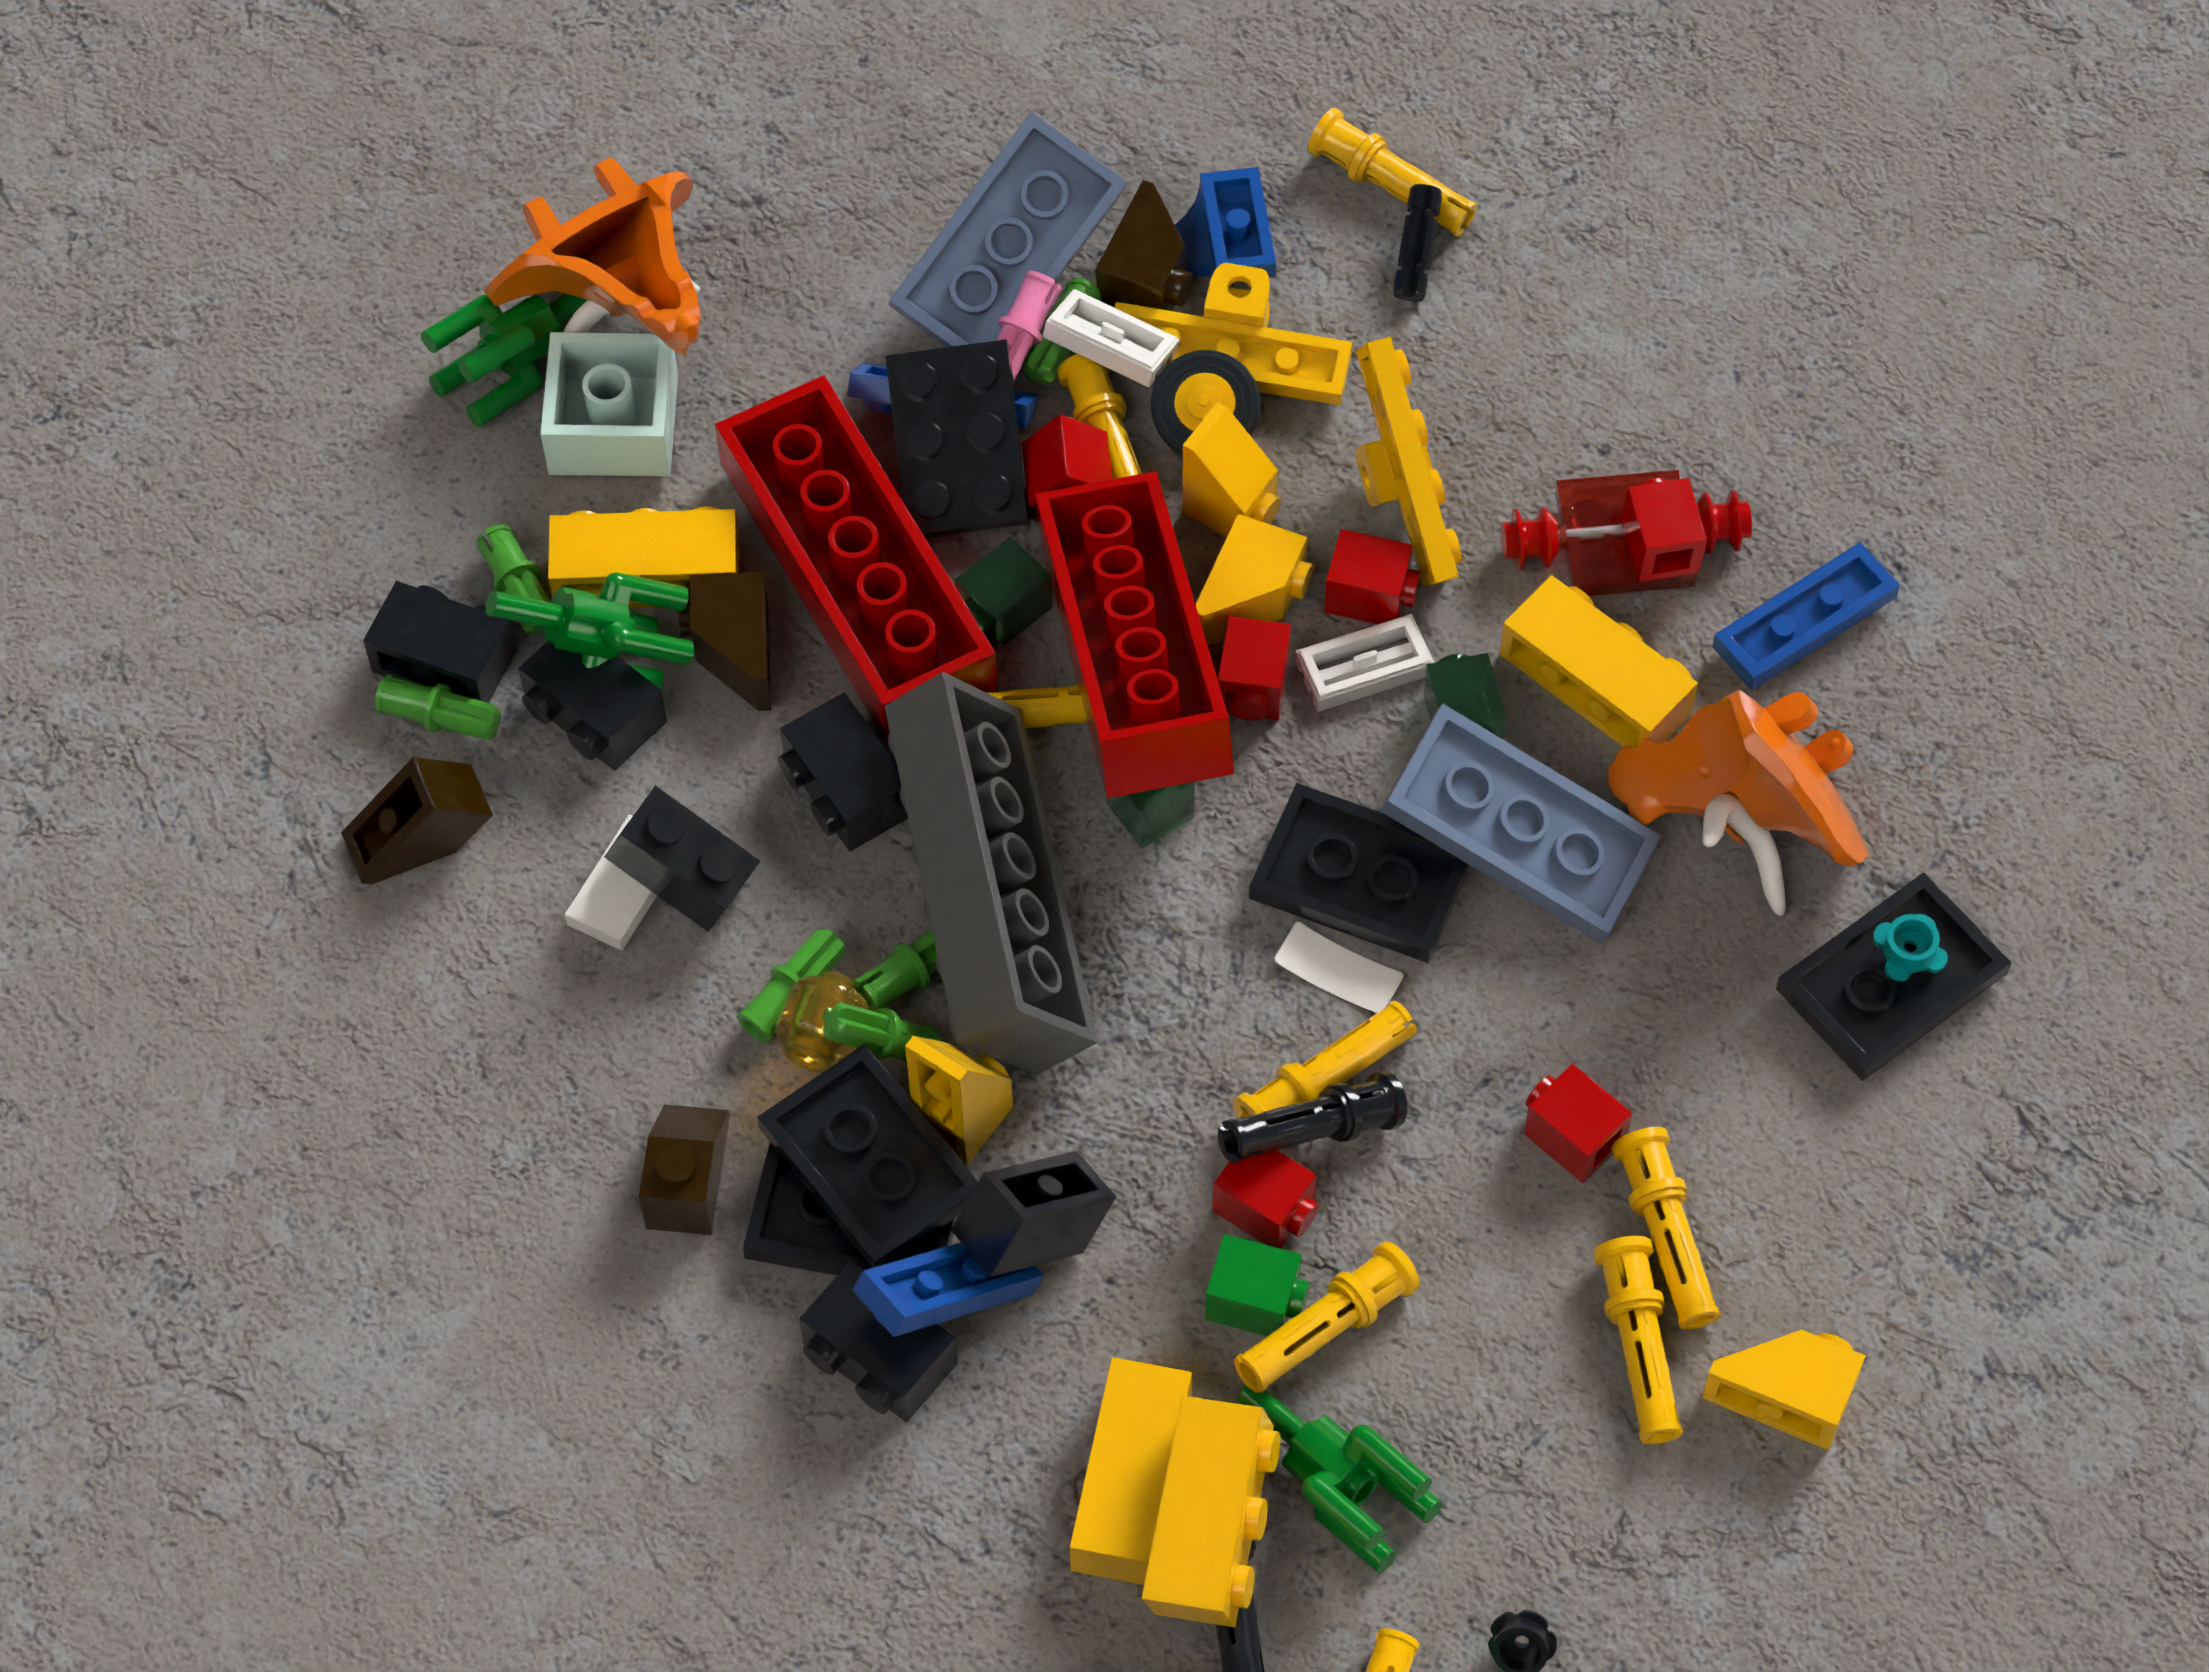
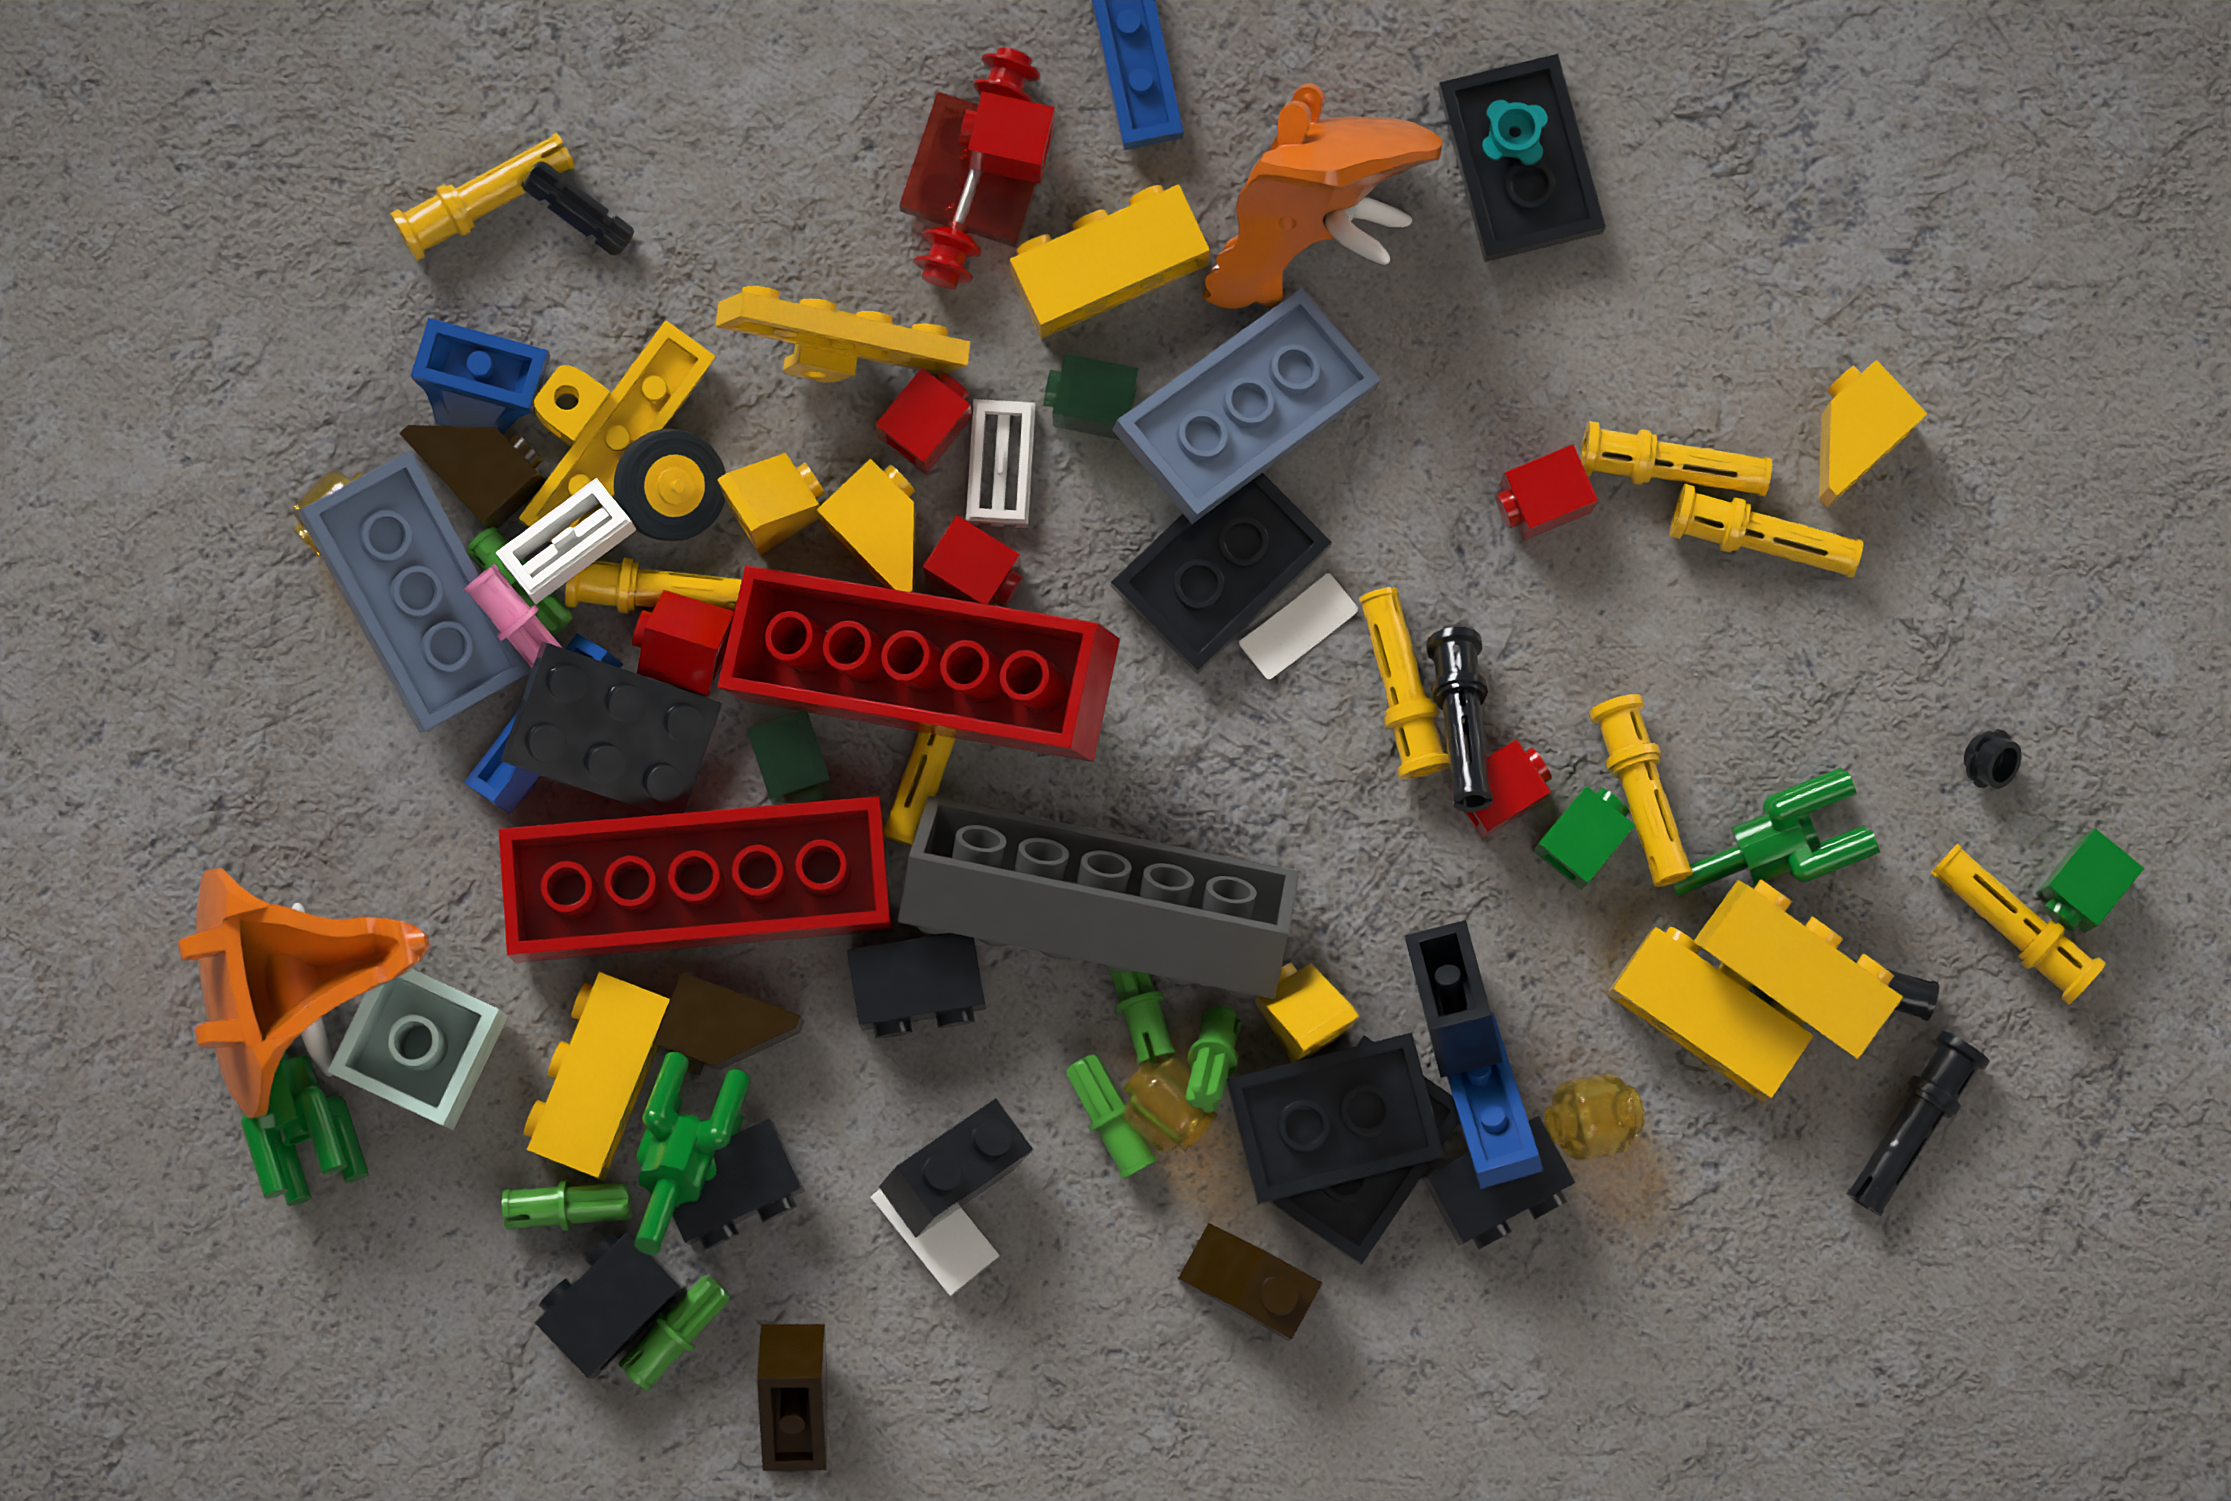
camera: 70 degrees left, 20 degrees up
(978, 1397) = (1594, 1116): none -> clear yellow head

